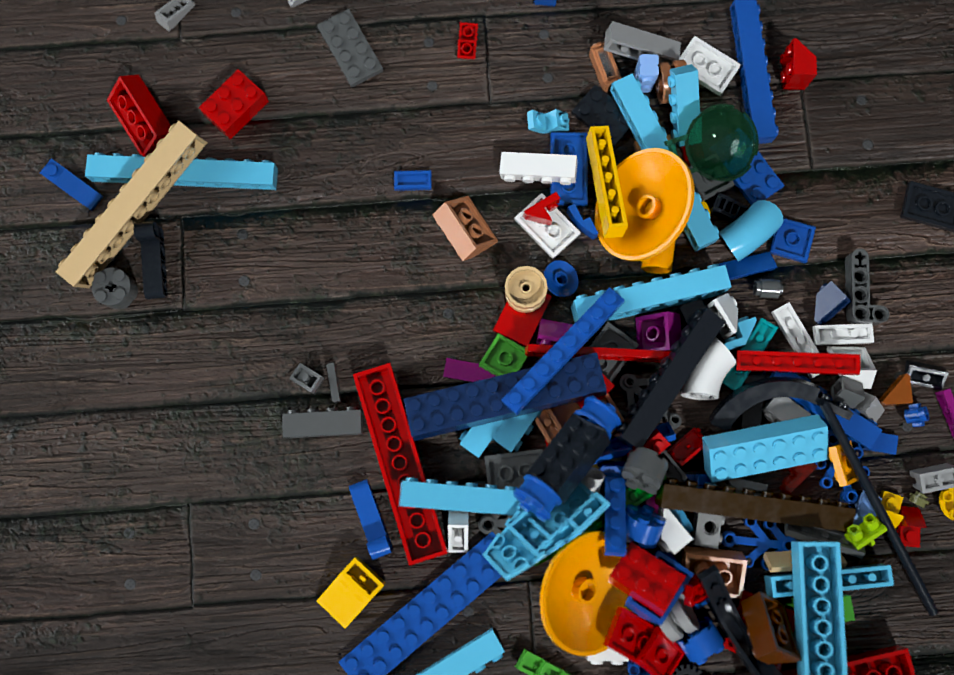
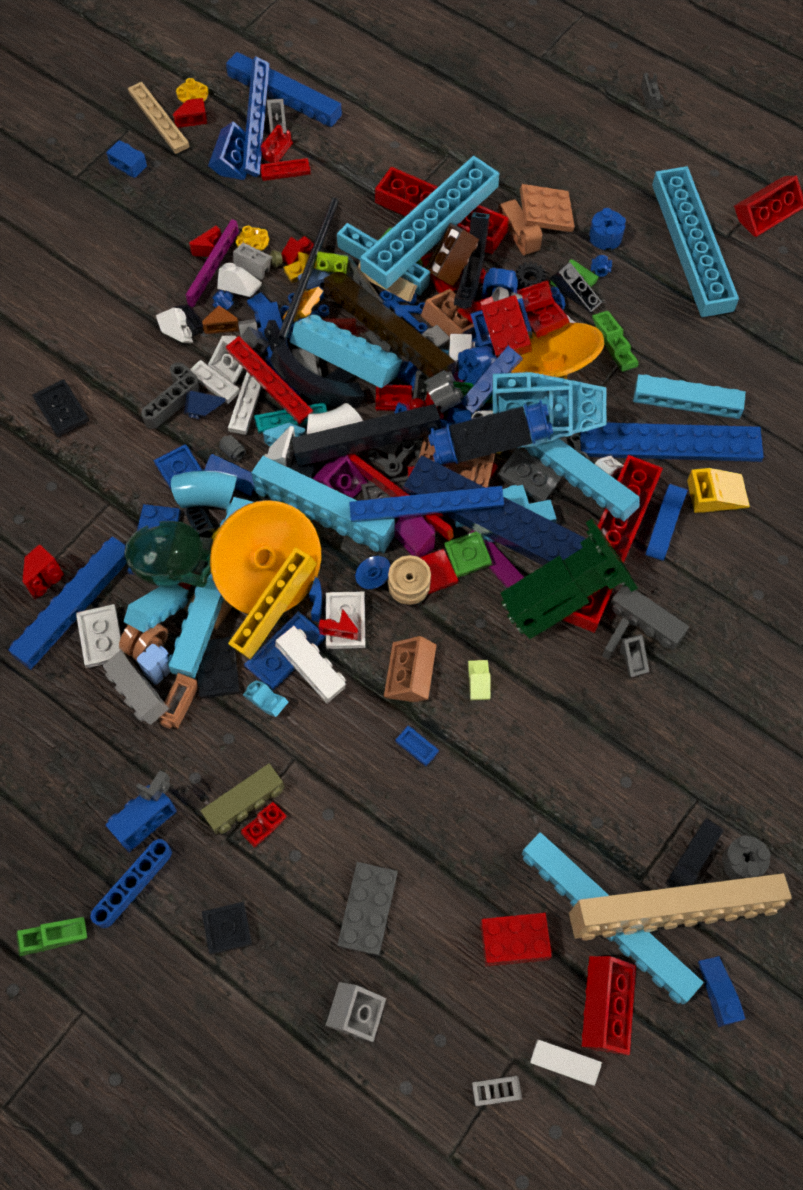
camera: 140 degrees left, 15 degrees down
(145, 61) = (566, 1062): none -> white slope
(395, 378) = (565, 584): none -> dark green brick
(410, 266) = (479, 680): none -> yellowish green slope
(495, 43) = (243, 799): none -> olive brick
(922, 441) = (237, 280): none -> white slope
(926, 353) = (173, 324): none -> white slope

